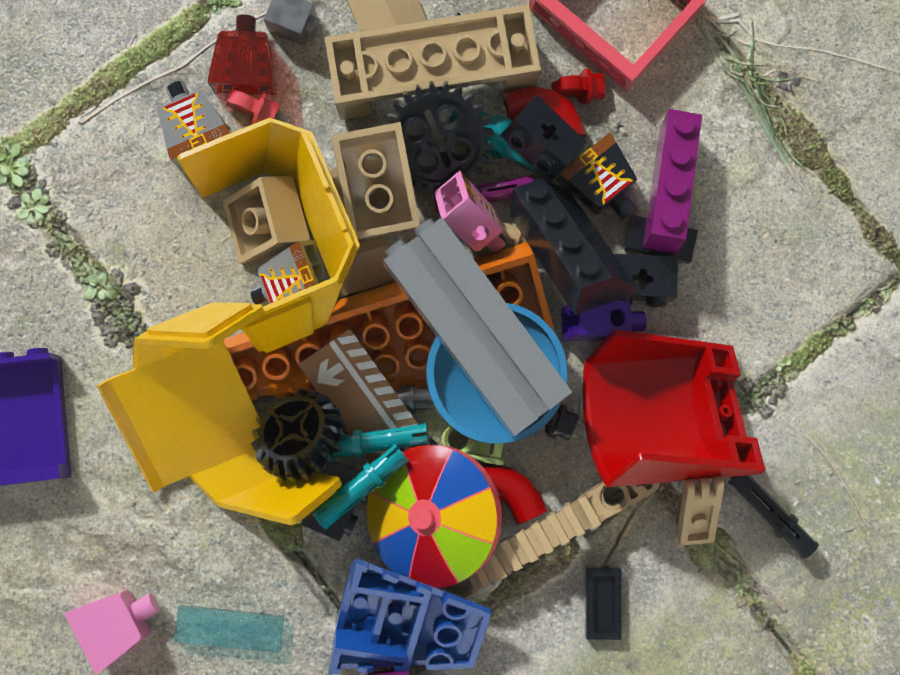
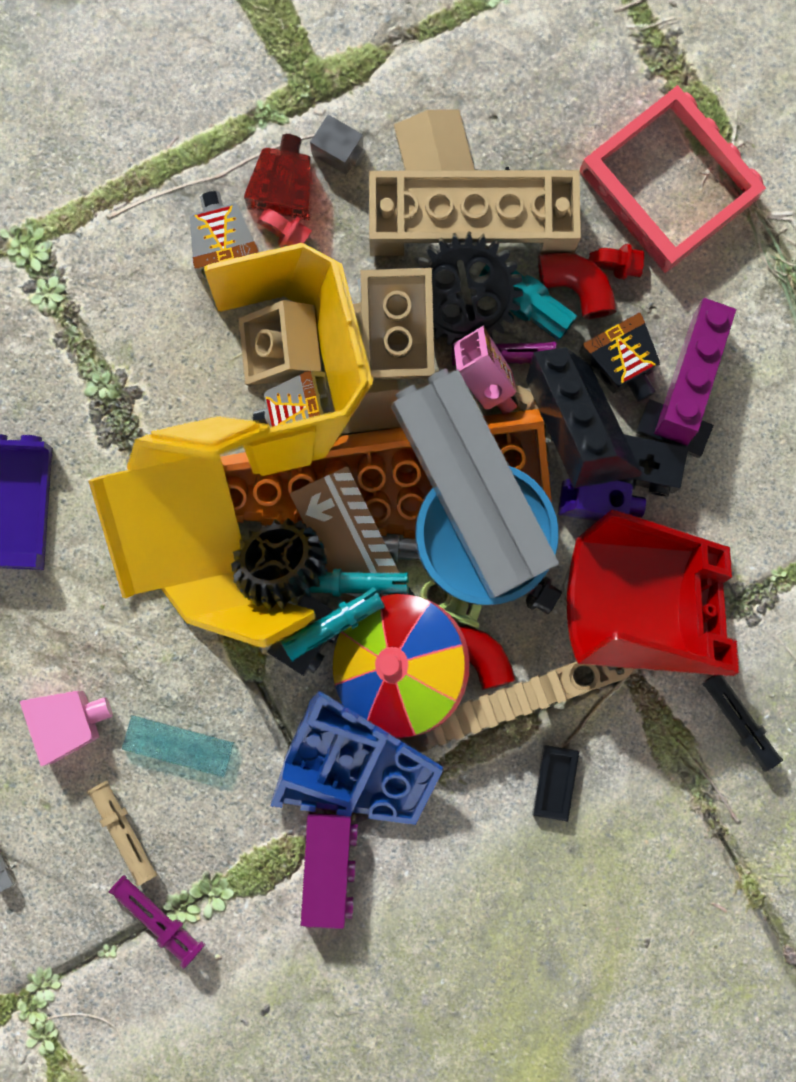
camera: 10 degrees right, 0 degrees up
(543, 138) = (572, 307): black brick -> none
(700, 511) = (667, 705): tan hinge -> none

